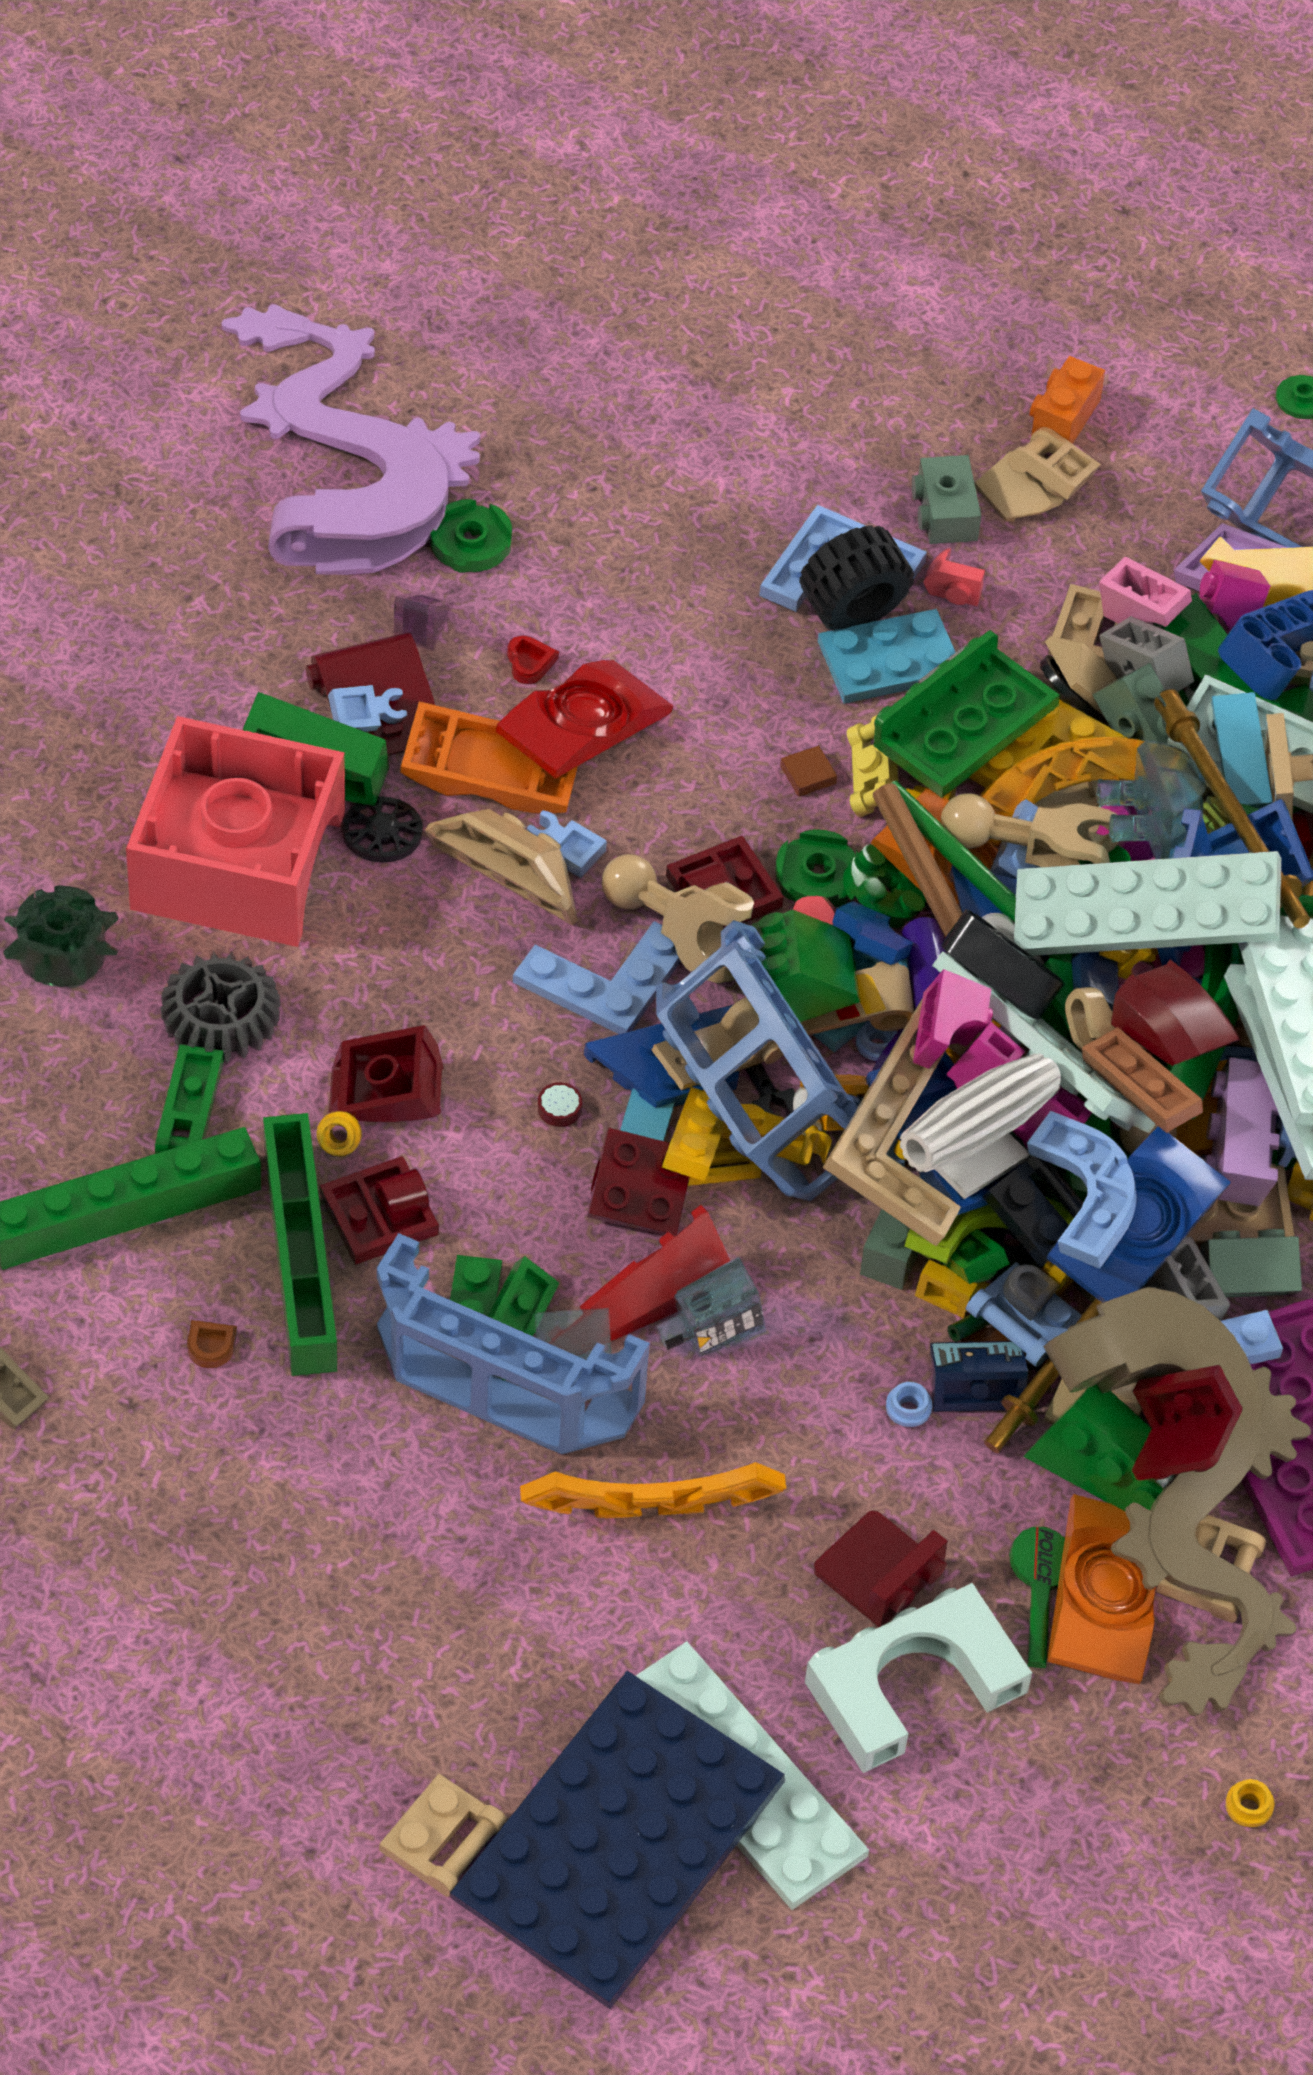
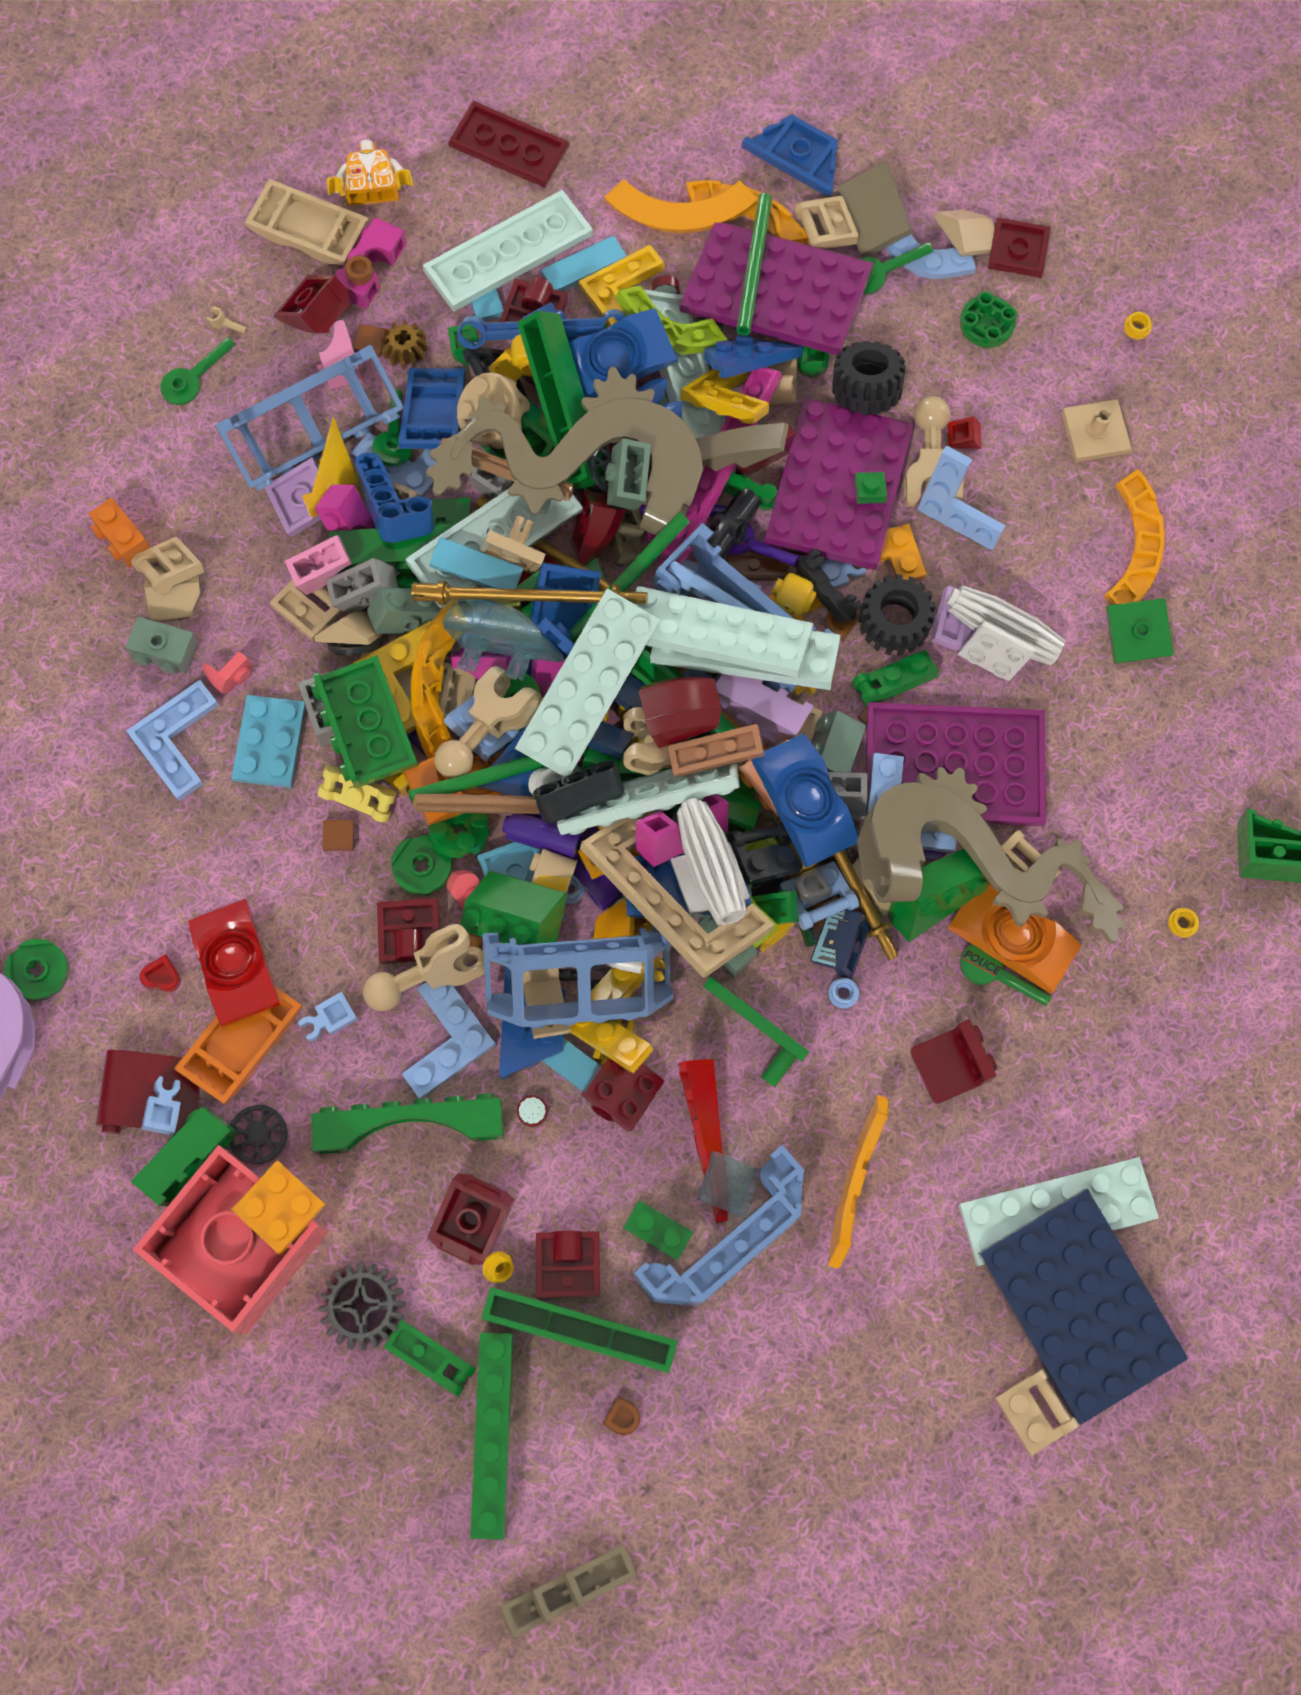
camera: 65 degrees left, 20 degrees up
(61, 936) = (241, 1396): clear green brick -> none
(298, 835) = (278, 1207): none -> light orange plate
(422, 617) = (92, 1032): clear purple slope -> none
(431, 908) = (341, 1130): none -> green arch
(509, 856) = (330, 1059): tan wedge -> none
(523, 1294) = (689, 1212): green plate -> none
(715, 1311) = (741, 1071): clear light blue torso -> none
(798, 1361) = (790, 1048): none -> green piece
(856, 577) = (211, 735): black tyre -> none
(872, 933) = (497, 858): blue tile -> none
(950, 1014) = (617, 845): dark pink arch -> none
(952, 1627) = (1024, 1117): light aqua arch -> none
(1107, 1178) = (785, 807): light blue plate -> none
(1189, 1421) = (963, 844): dark red bracket -> none

